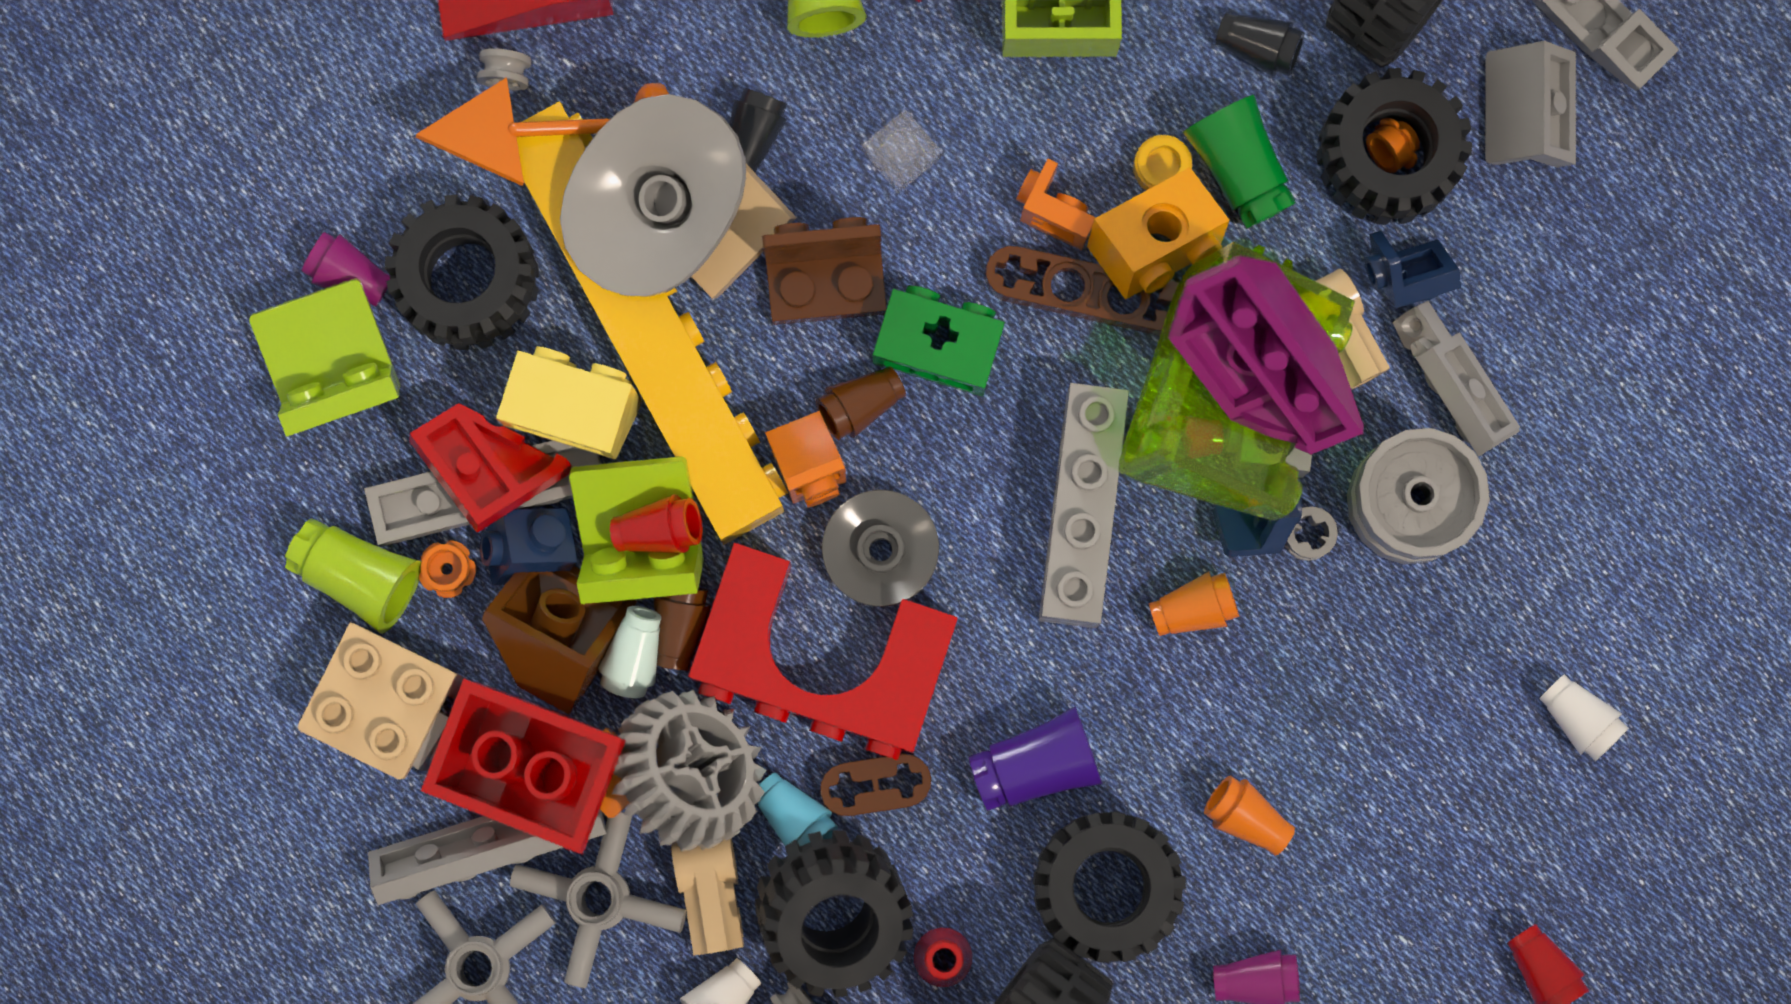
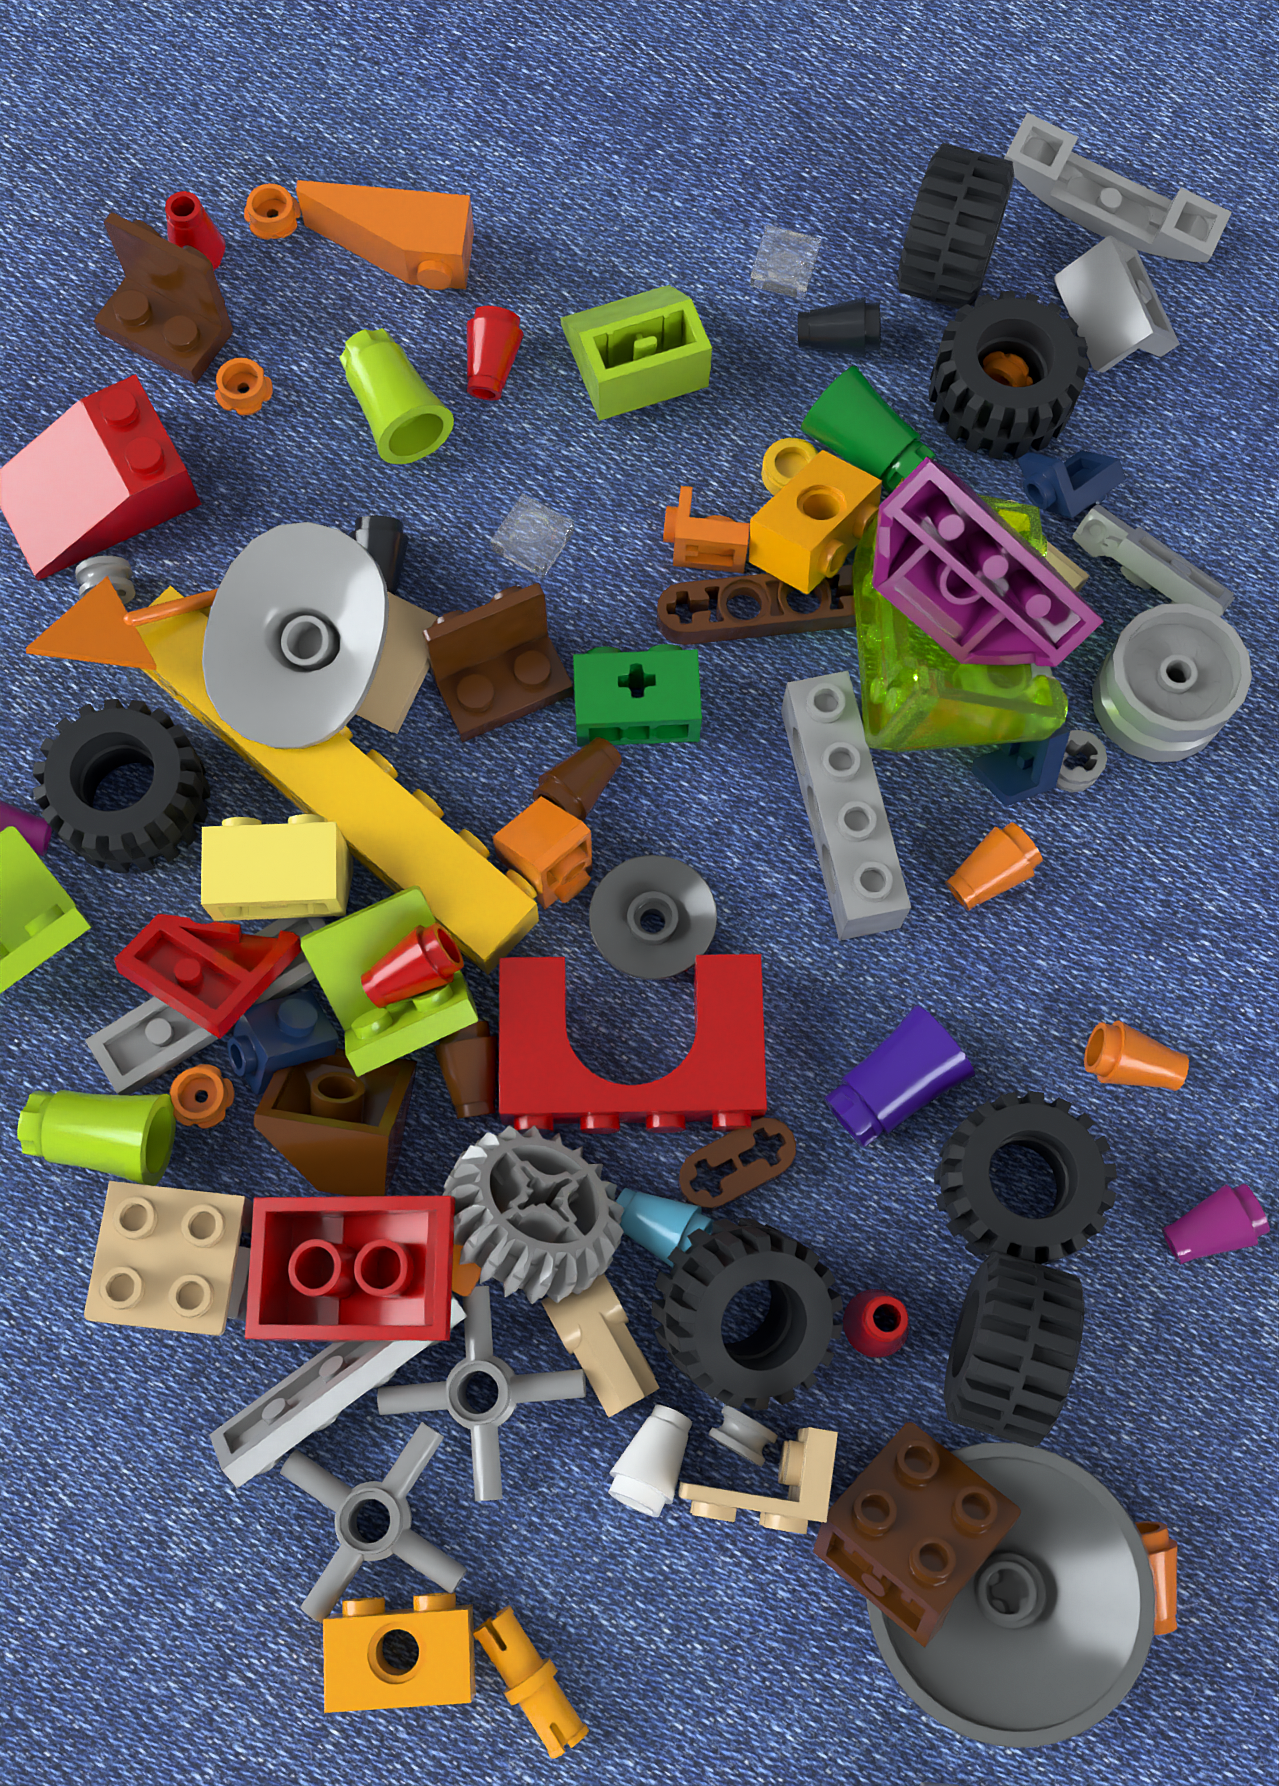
camera: 20 degrees left, 10 degrees down
(632, 654) = (430, 1114): light aqua cone -> none

